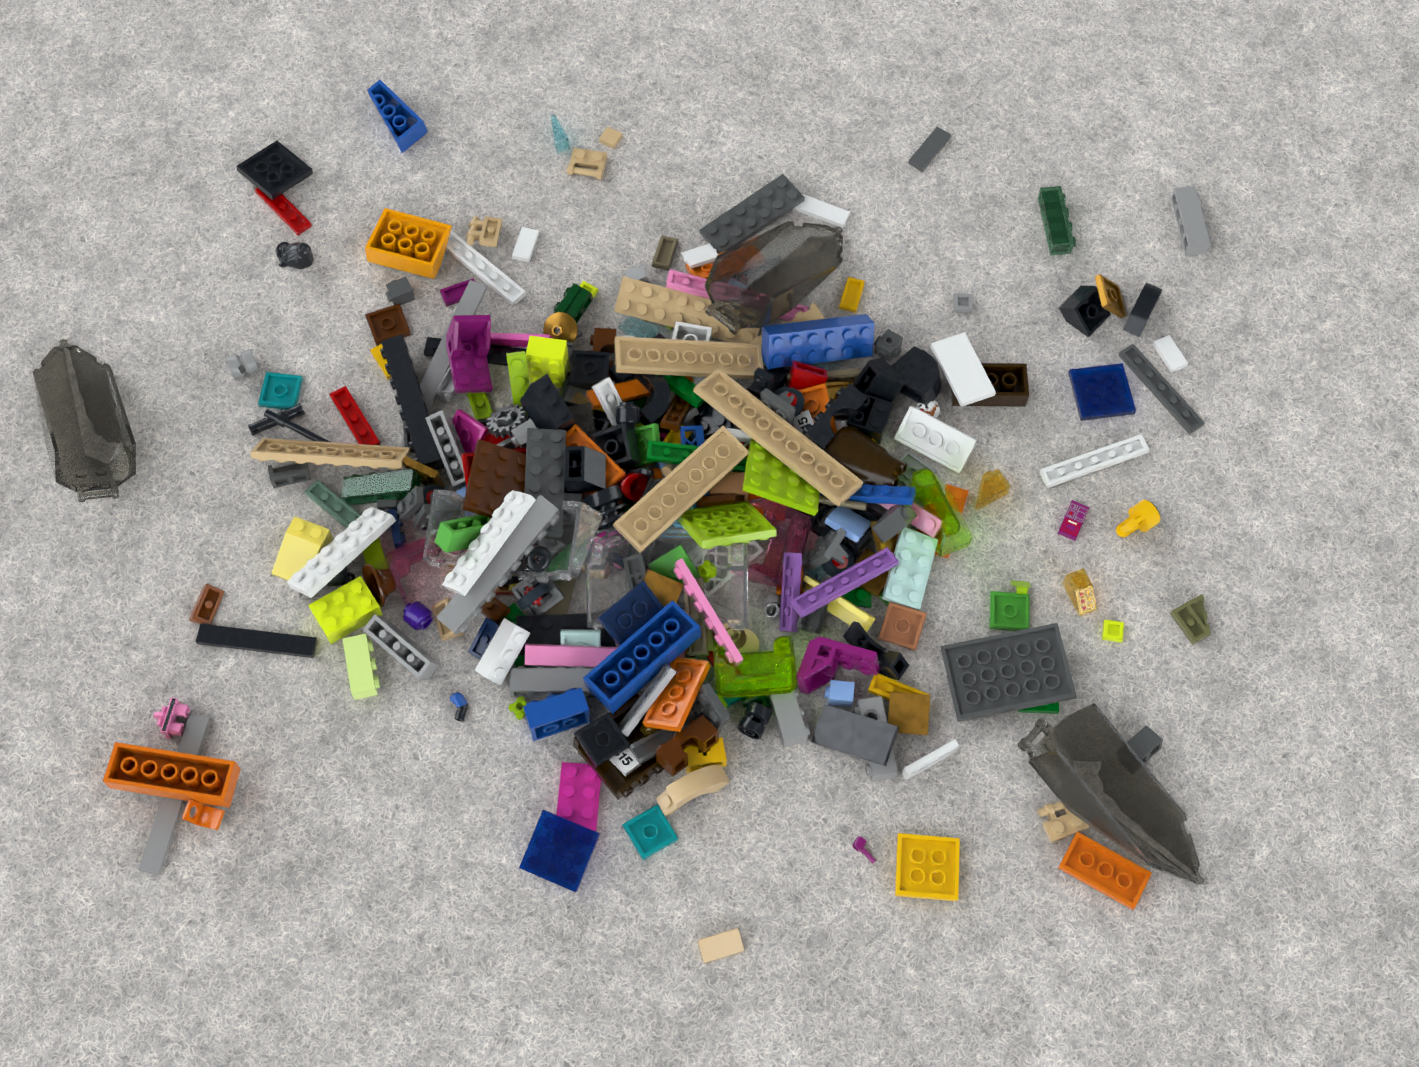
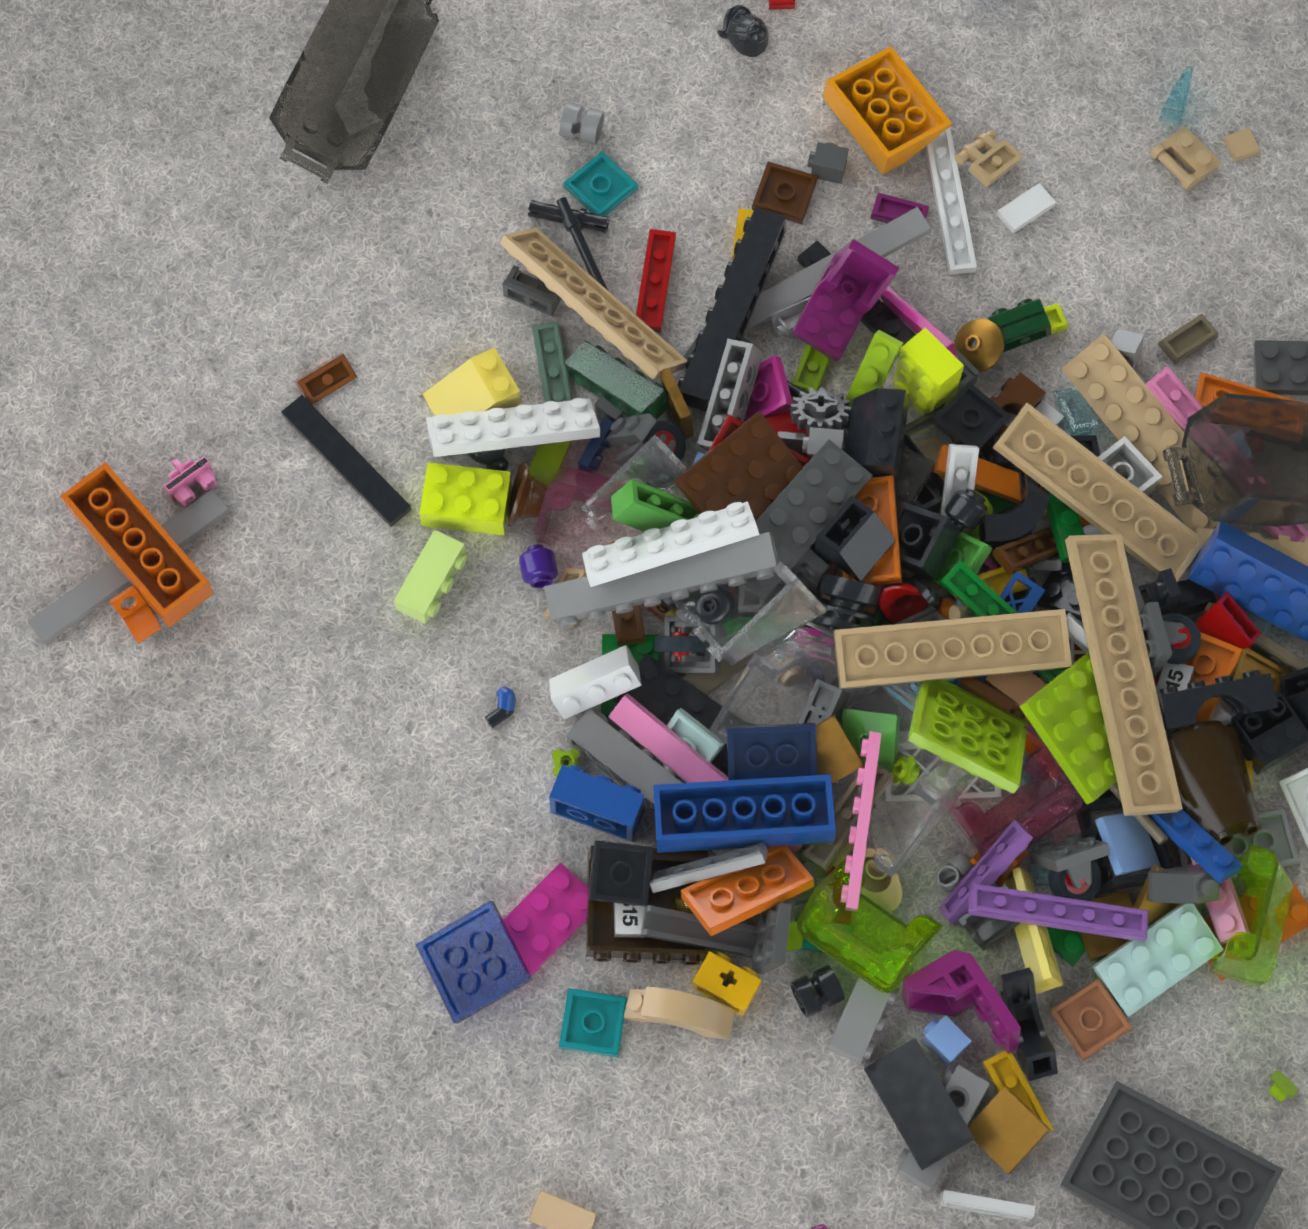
camera: 40 degrees right, 5 degrees up
(401, 647) = (490, 589): light grey brick -> none
(483, 638) = (589, 649): dark blue plate -> none
(698, 733) = (733, 953): reddish brown arch -> none
(699, 256) = (1228, 374): white piece -> none
(761, 699) = (848, 978): dark green arm -> none
(1009, 611) = (1241, 1106): bright green tile -> none

